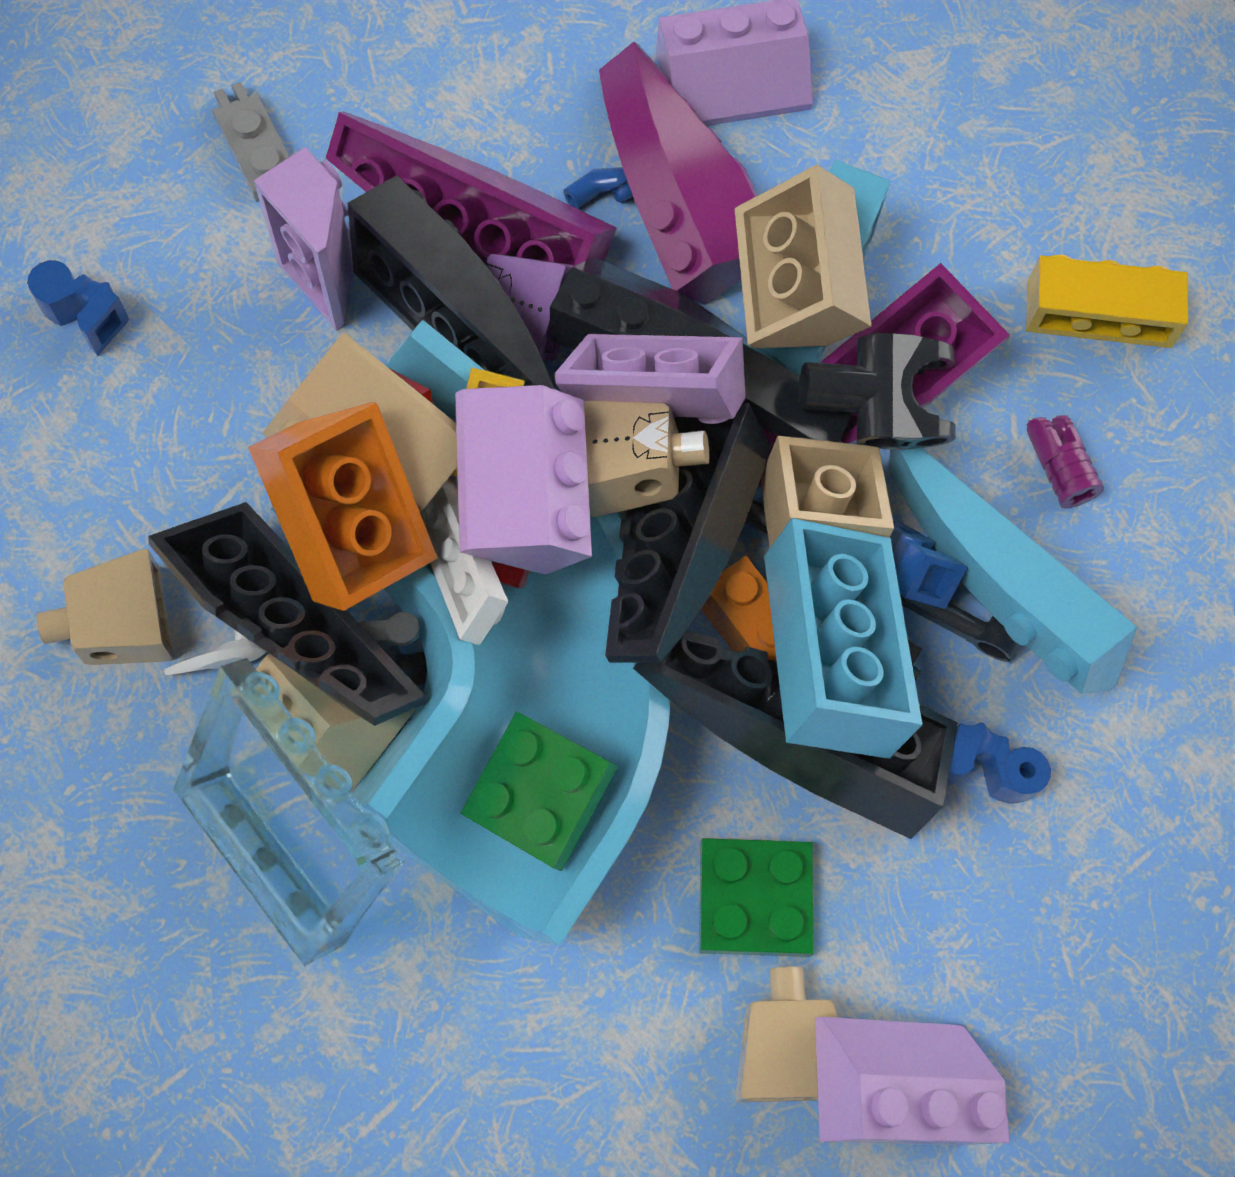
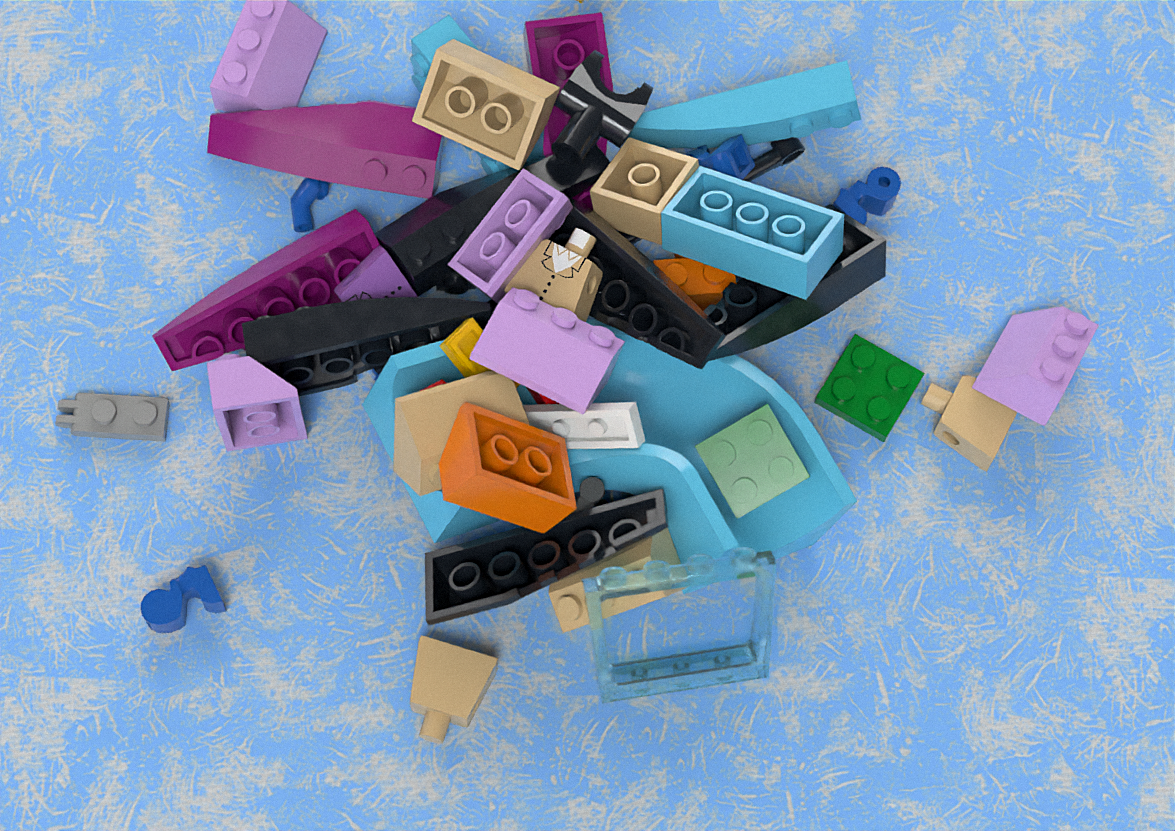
camera: 60 degrees left, 0 degrees up
(219, 656) = (518, 631): white bar -> none
(1064, 460) = (689, 35): magenta hinge -> none

